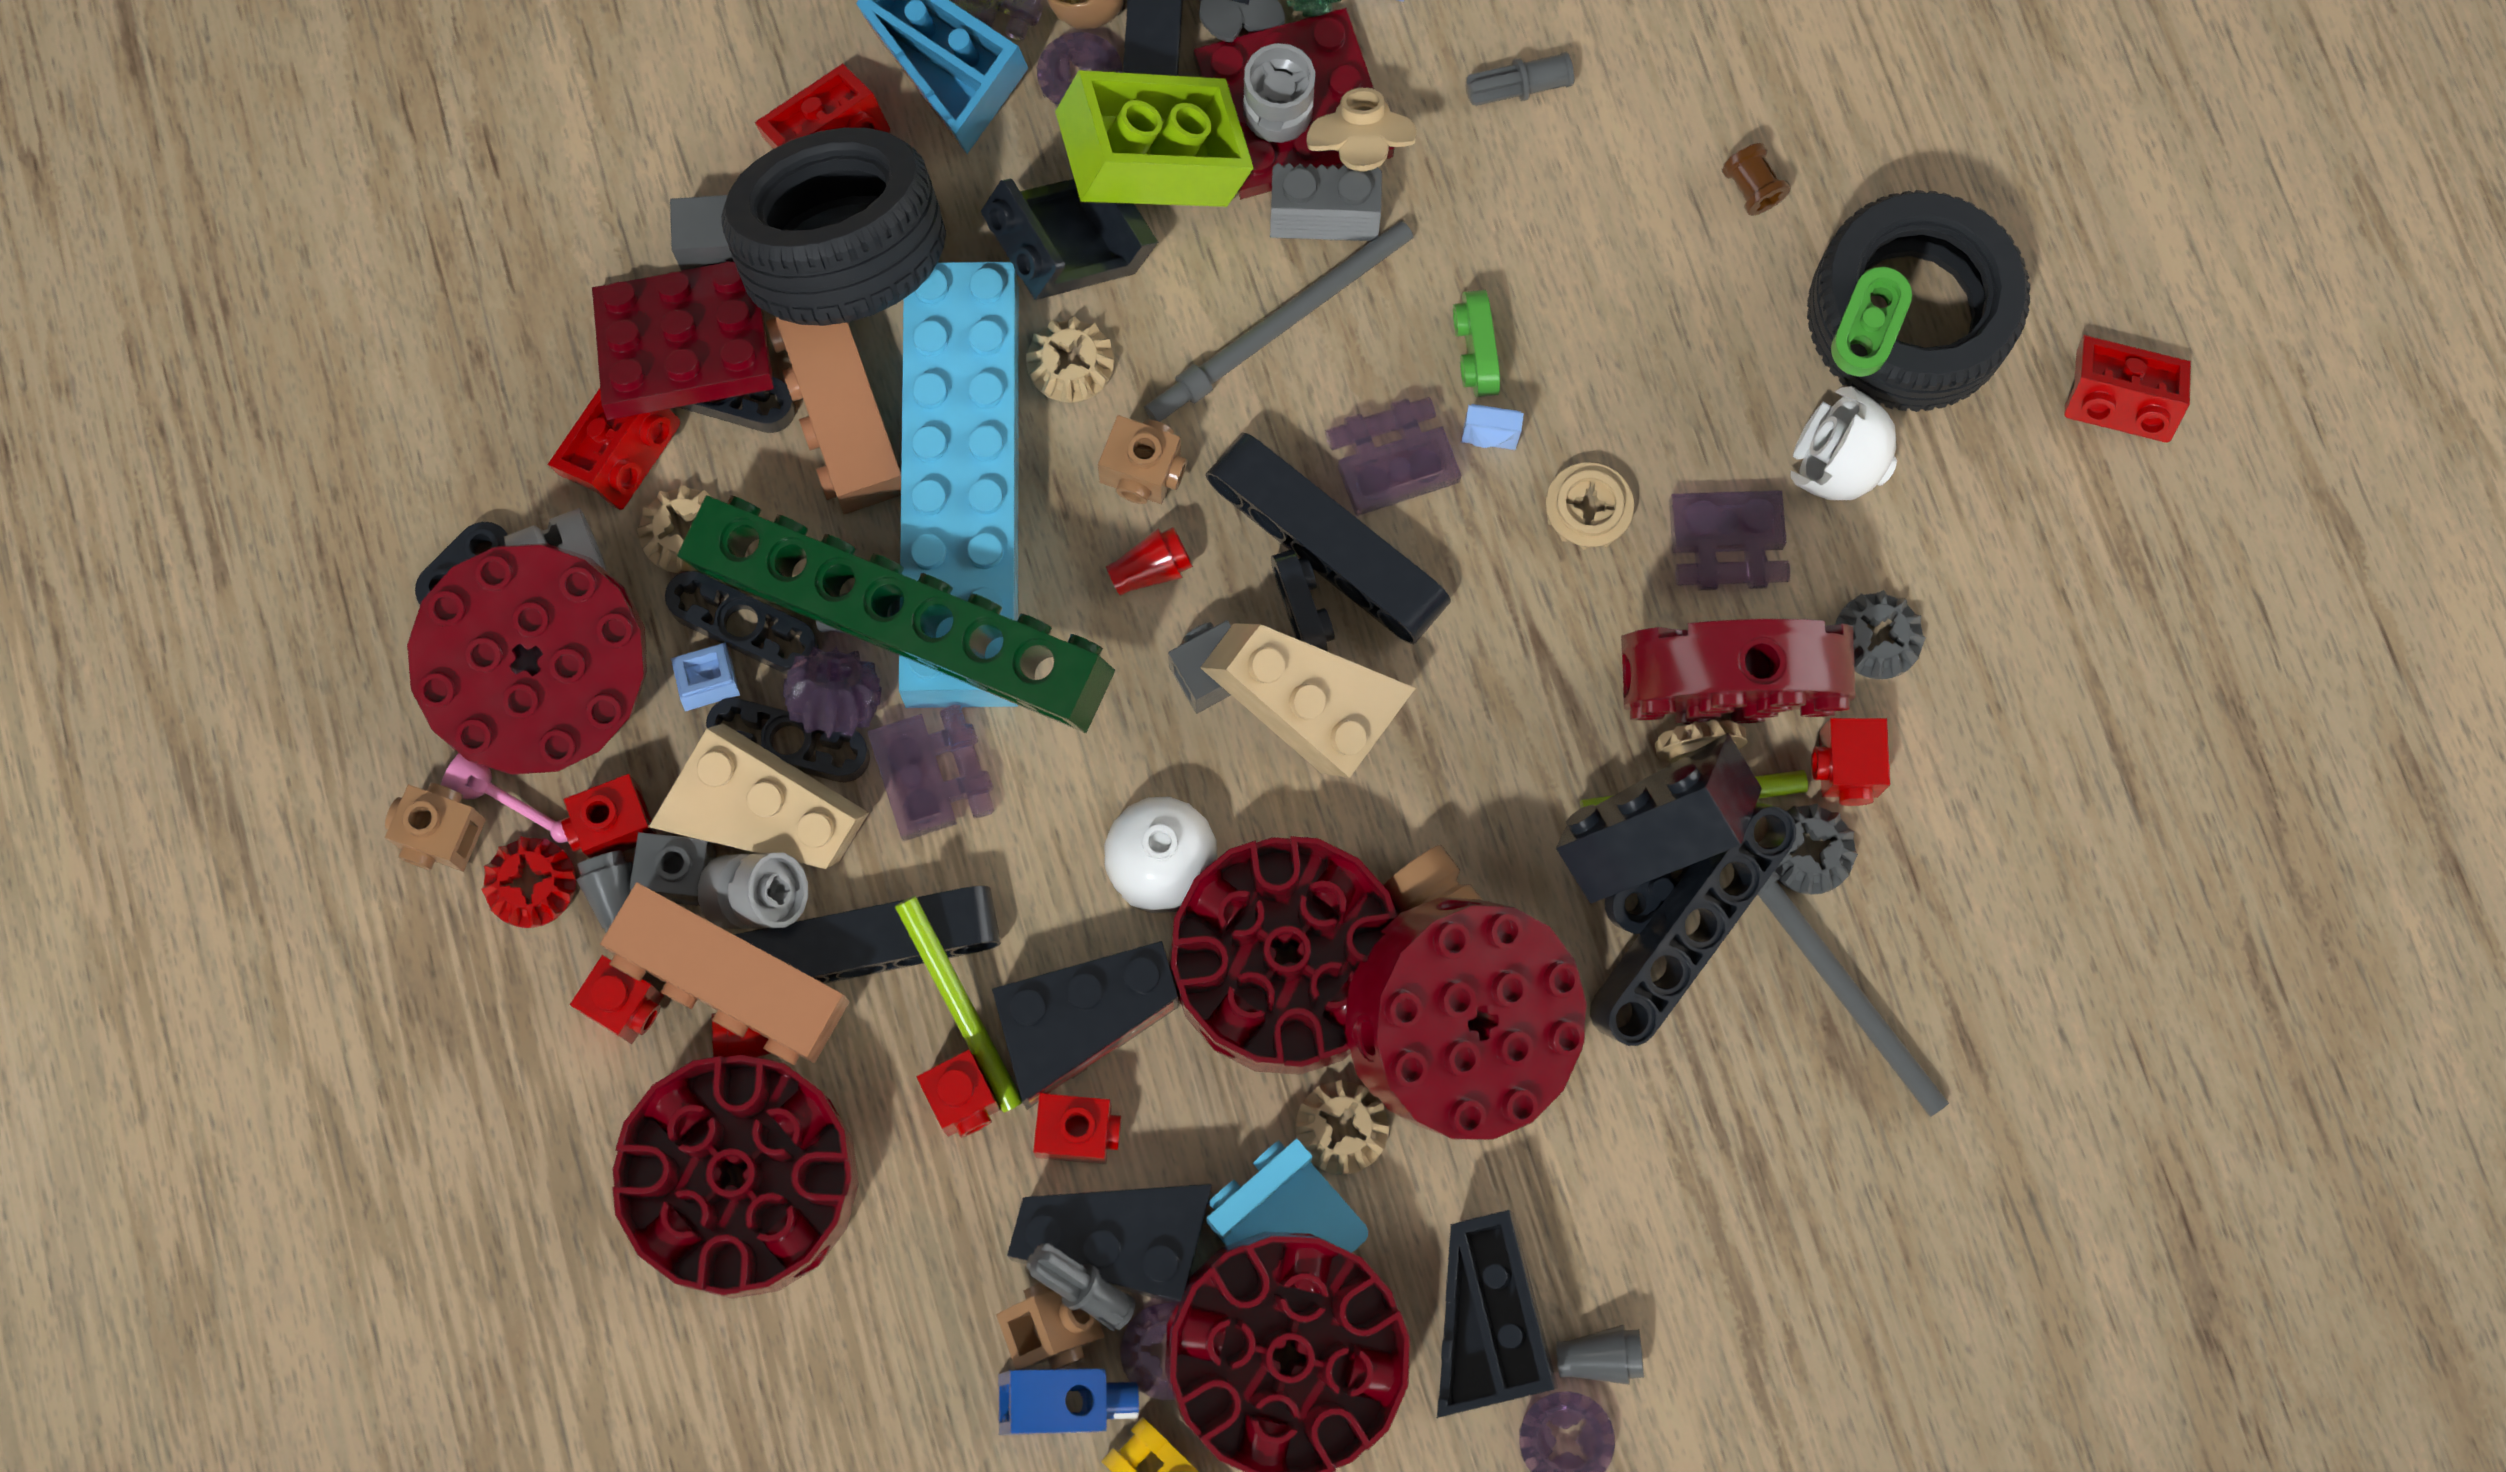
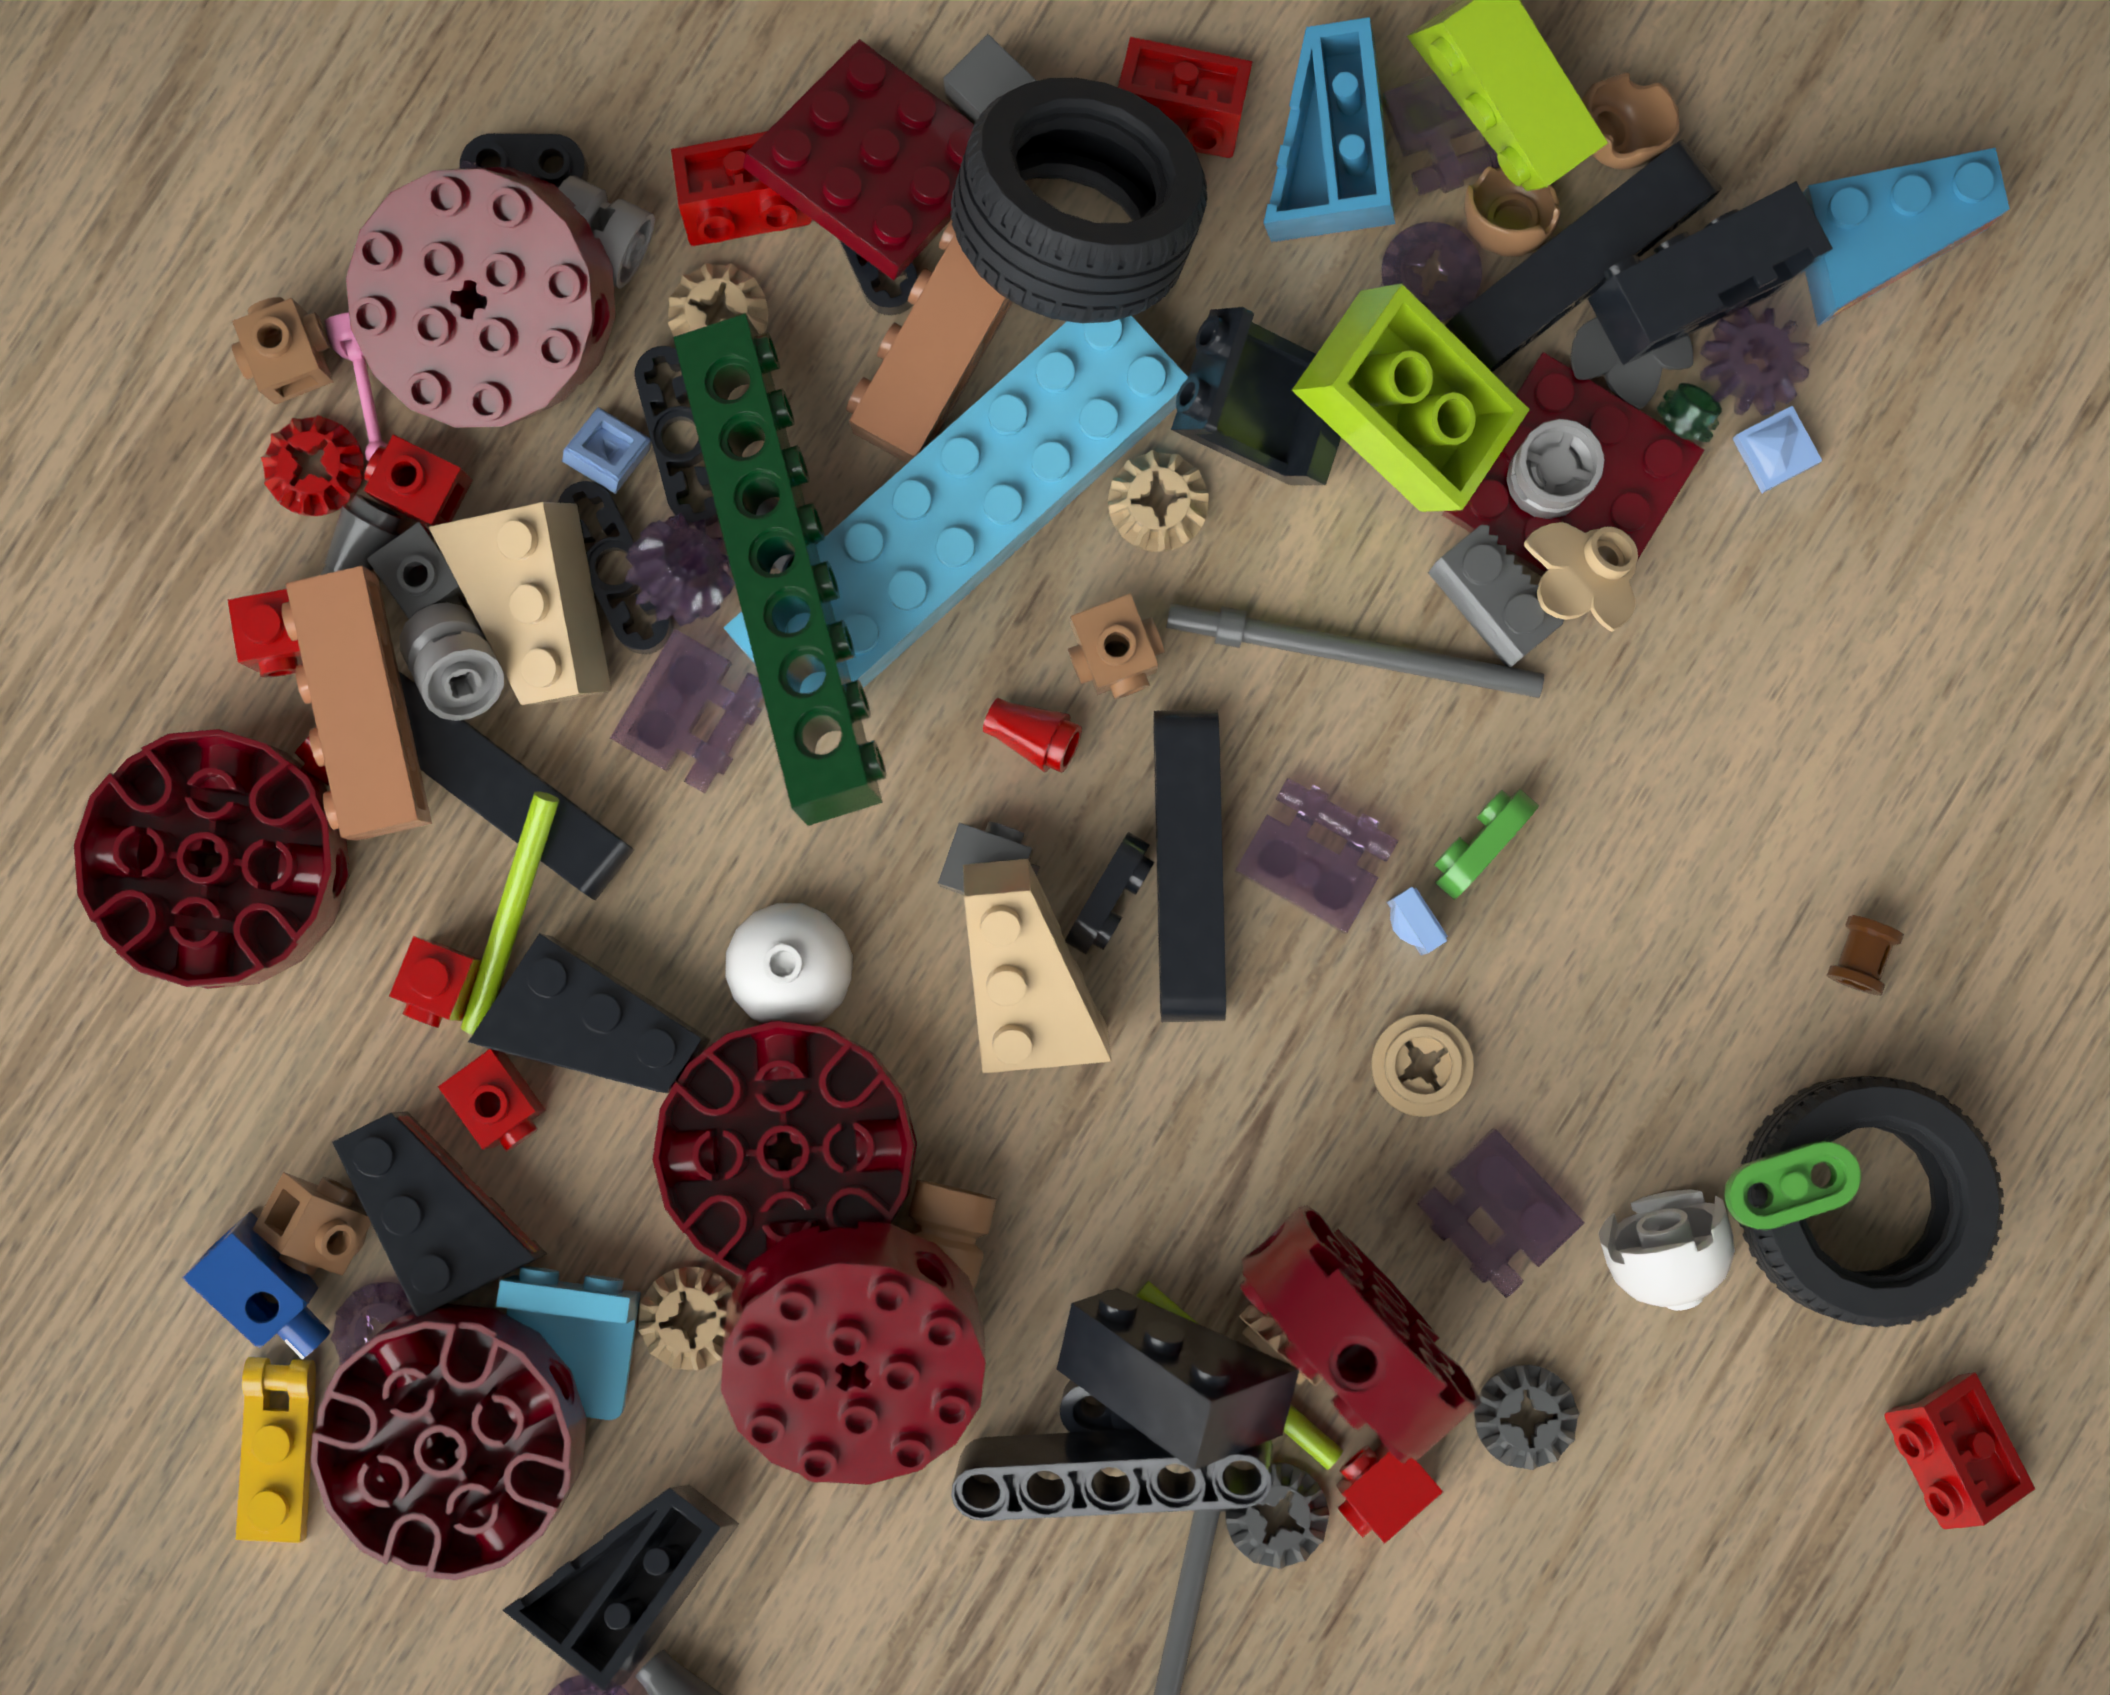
camera: 55 degrees right, 10 degrees up
(1081, 1287) = (353, 1227): dark grey axle -> none
(1520, 79) = (1774, 663): dark grey axle -> none

